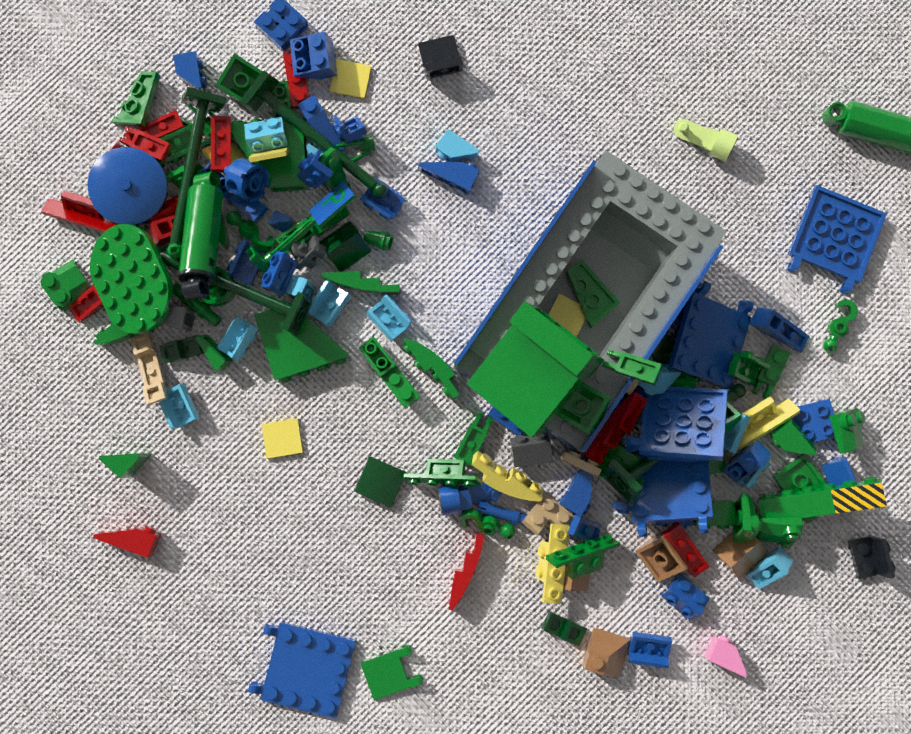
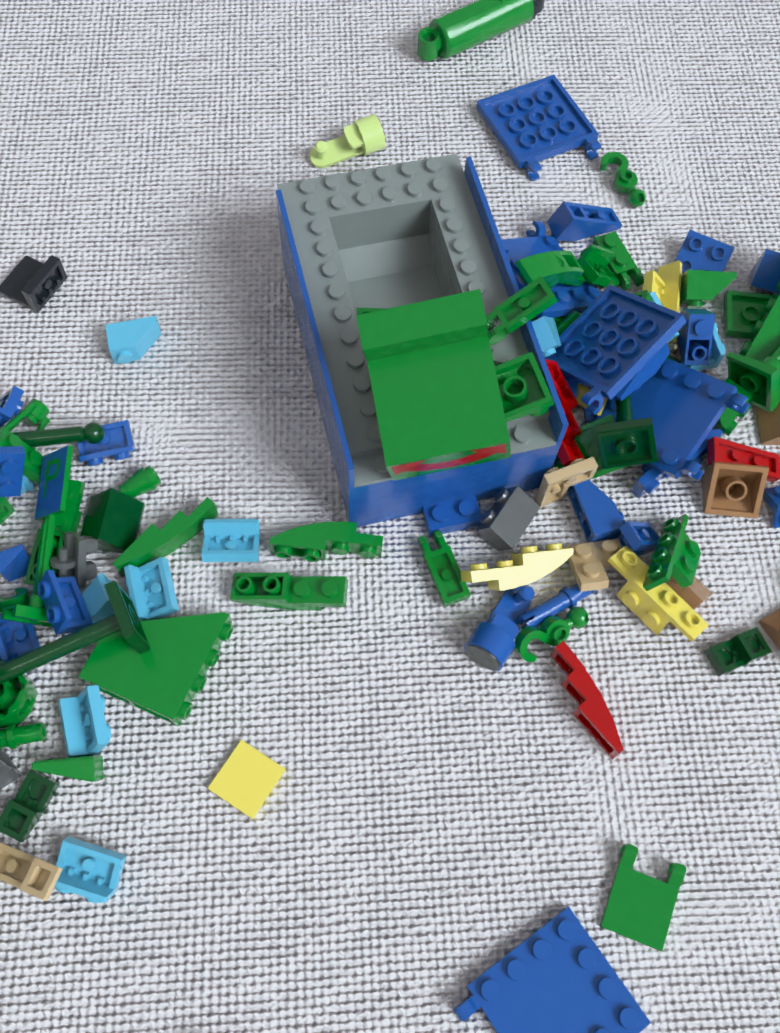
camera: 50 degrees left, 20 degrees down
(125, 464) = (85, 1003): green slope -> none
(380, 481) = (400, 708): dark green slope -> none
(444, 472) = (453, 625): bracket -> none
(455, 174) = (151, 362): blue slope -> none
(704, 349) = (553, 267): none -> green slope
(848, 429) = (729, 233): green slope -> none

